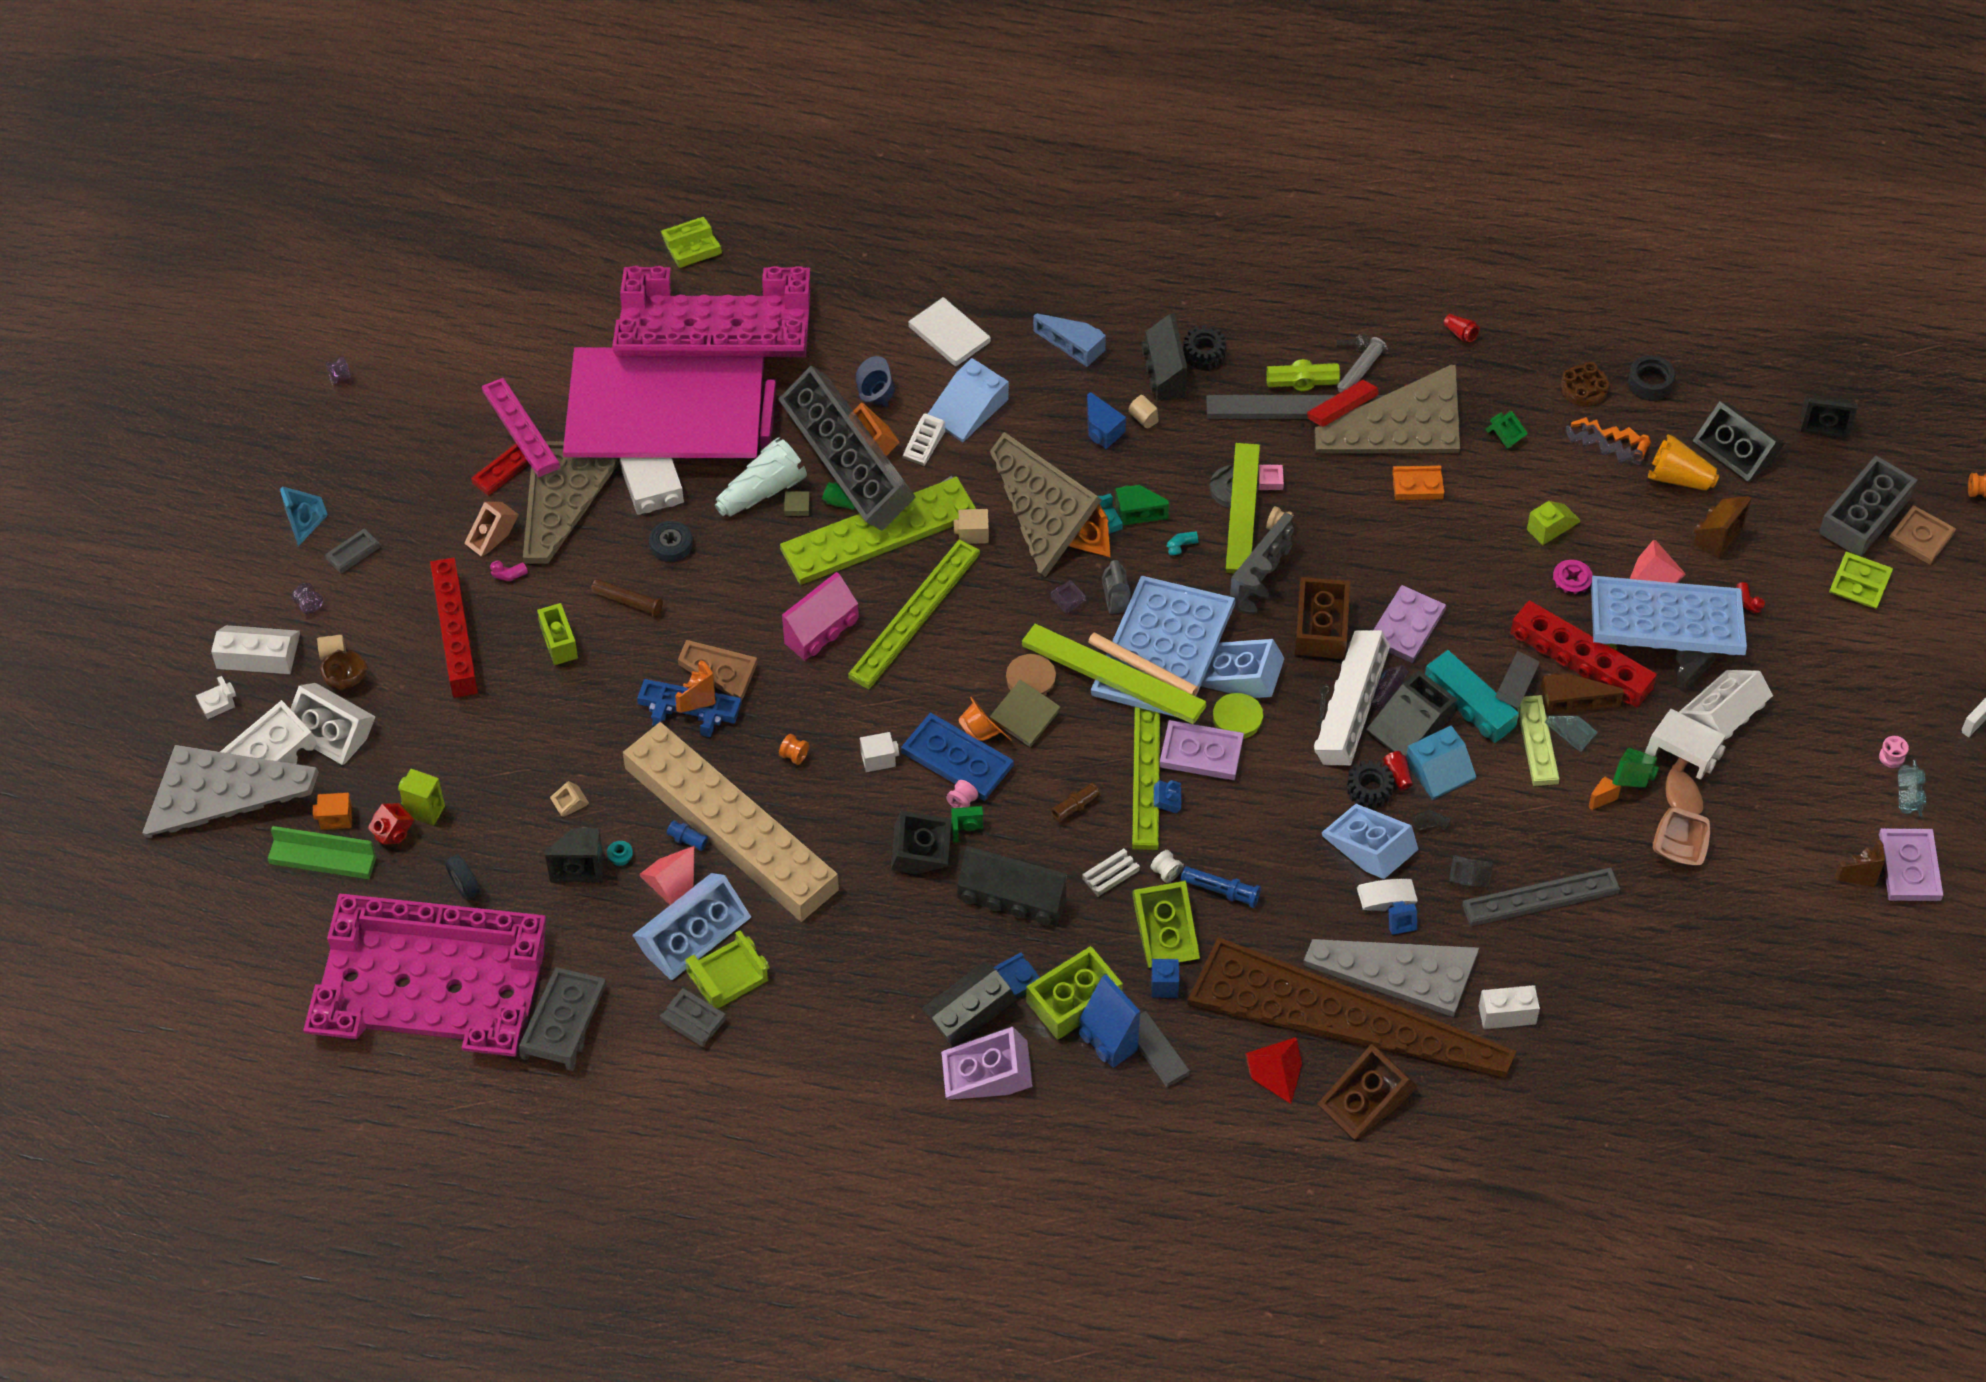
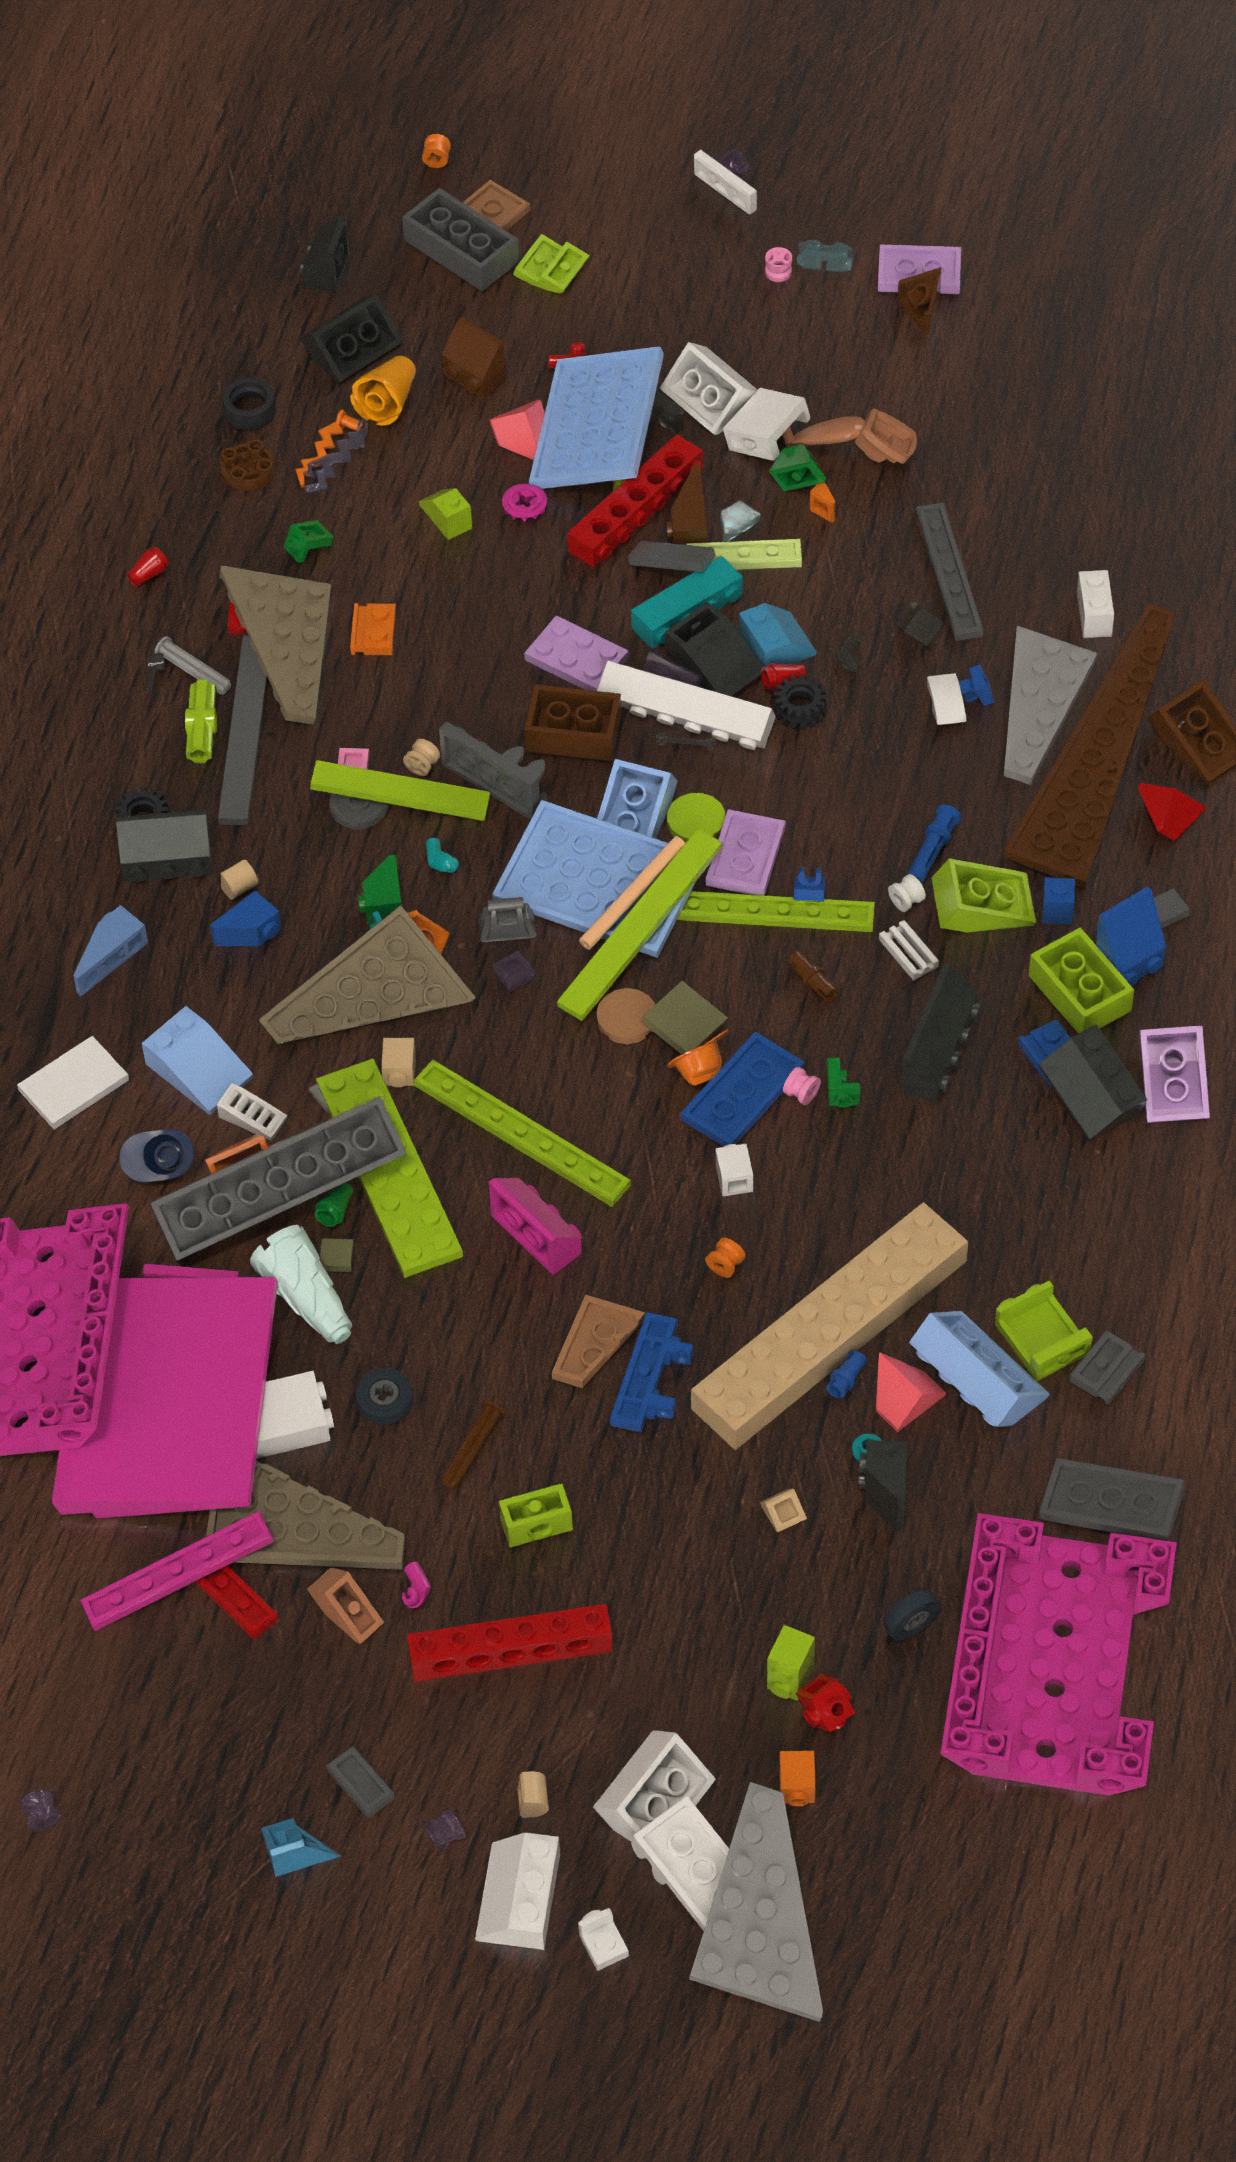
camera: 85 degrees left, 0 degrees up
(322, 852) = (862, 1794): bright green panel -> none
(343, 669) = (573, 1772): reddish brown hair -> none
(699, 692) = (638, 1345): orange slope -> none
(920, 843) = (874, 1125): pearl dark grey slope -> none
(1342, 403) = (256, 681): red tile -> none
(1372, 840) = (875, 705): light blue slope -> none

